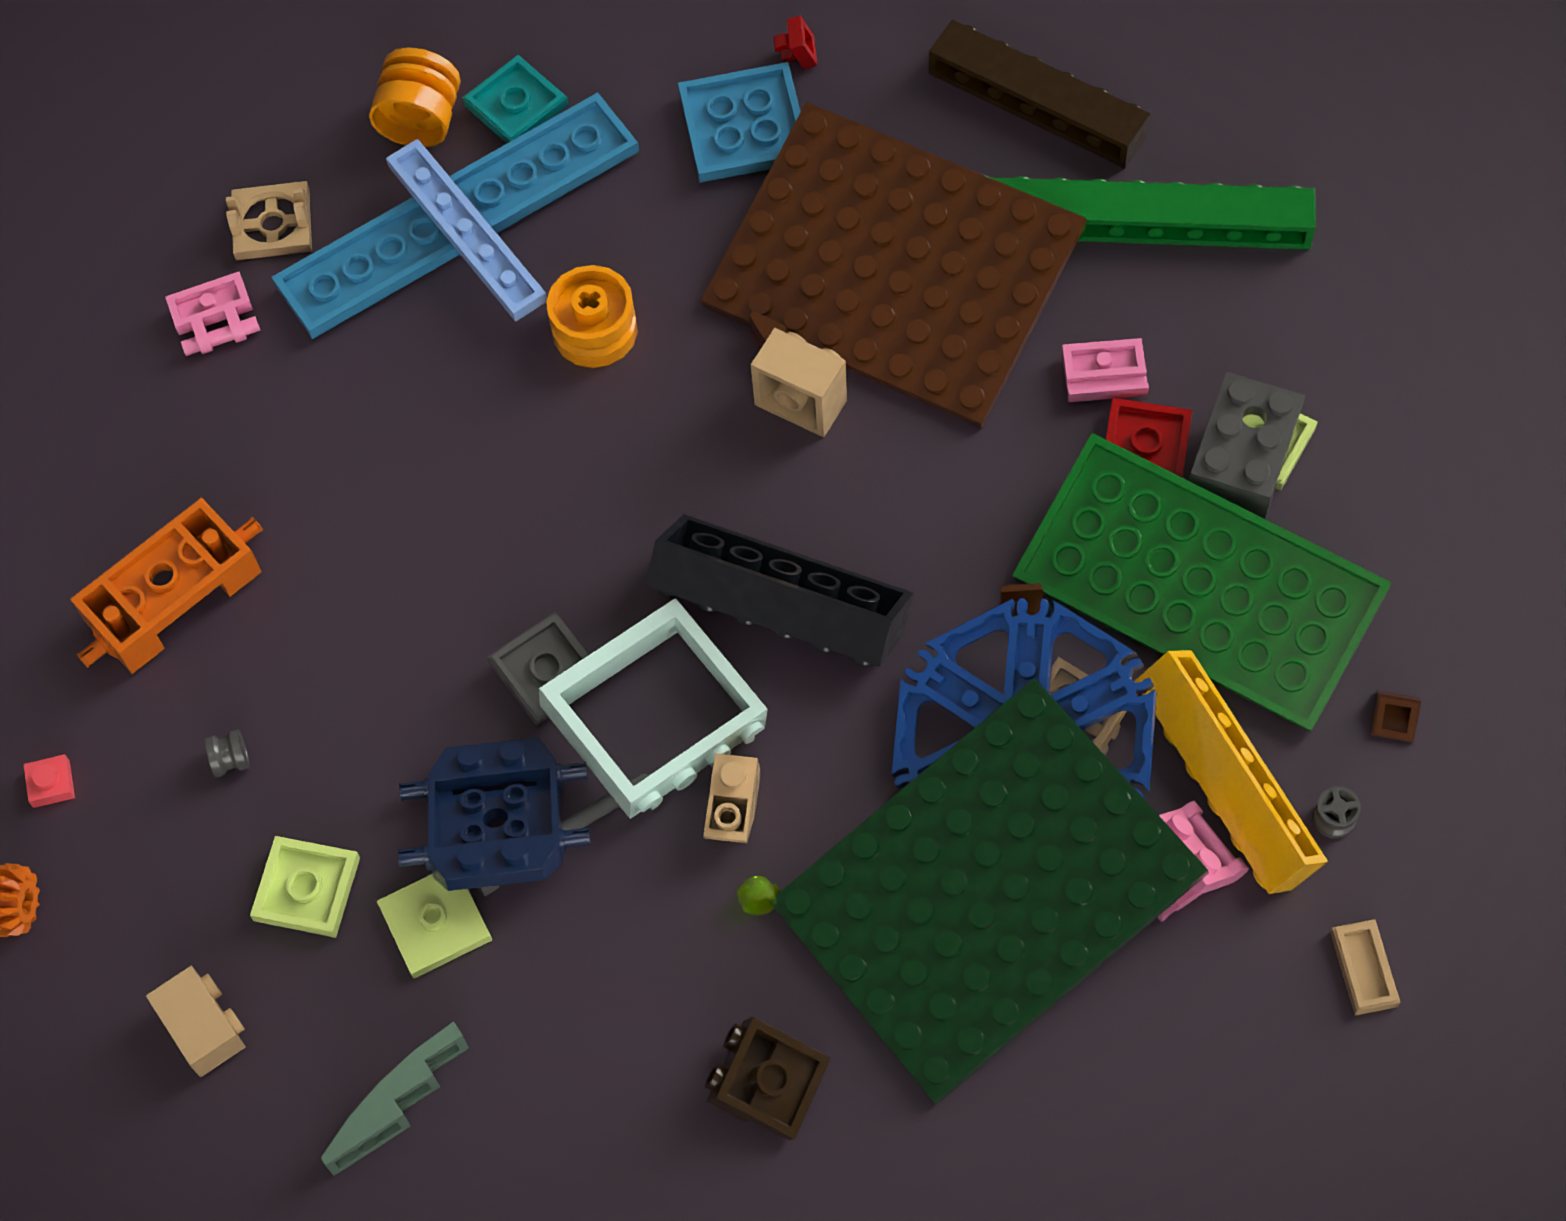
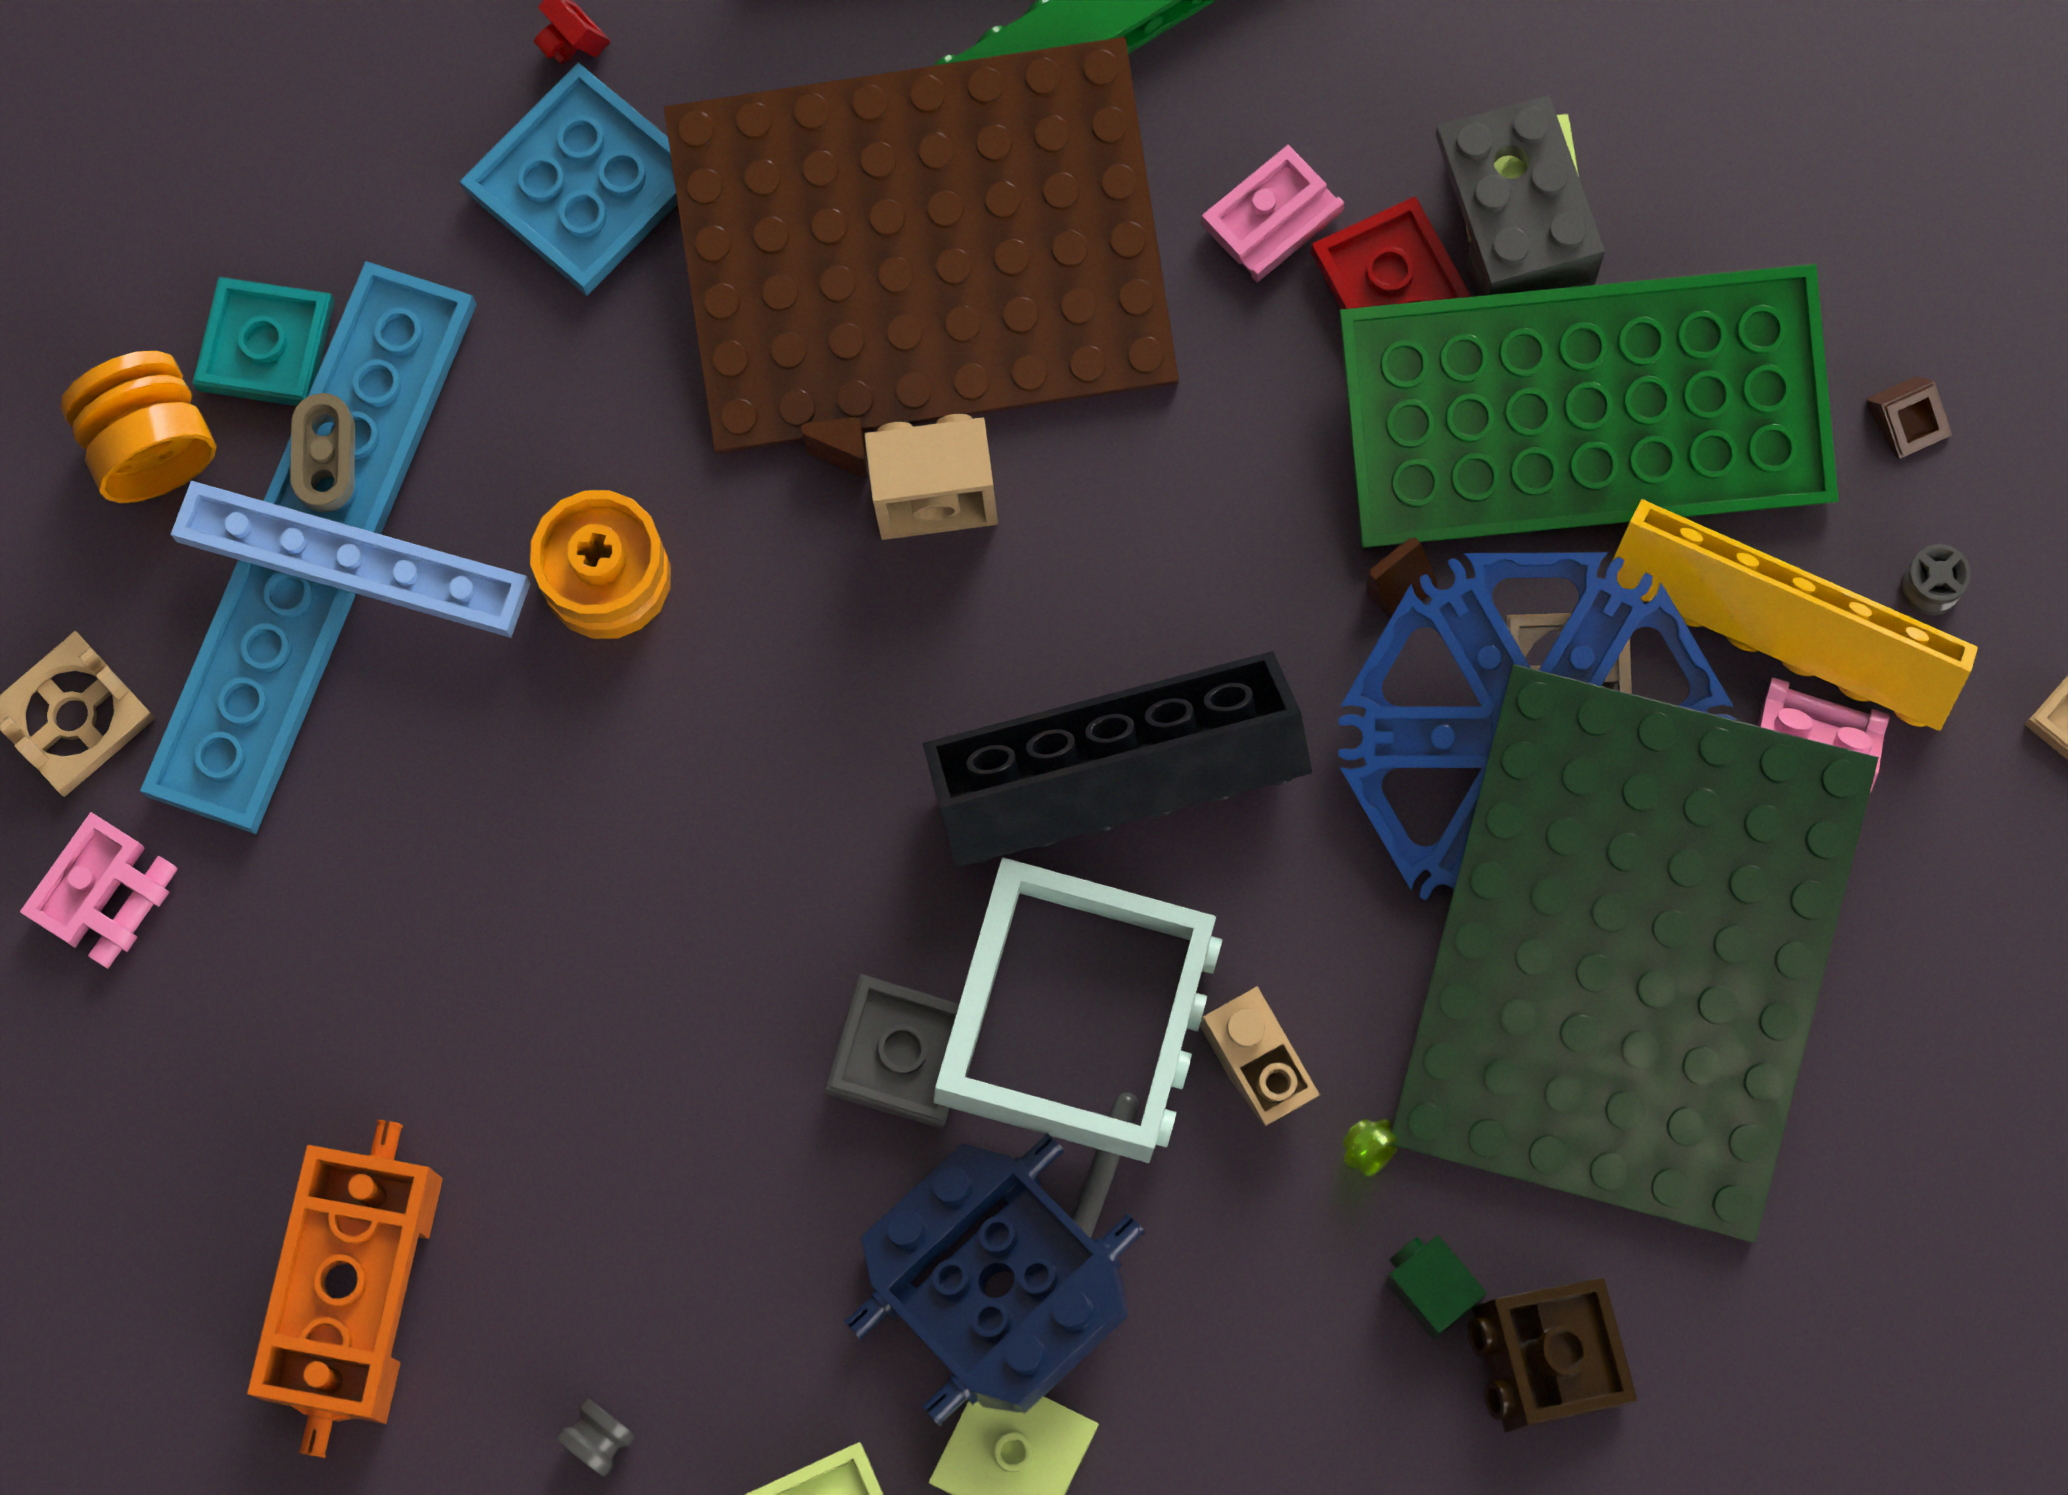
camera: 35 degrees left, 10 degrees up
(492, 170) = (322, 456): none -> dark tan plate
(730, 992) = (1434, 1284): none -> dark green brick

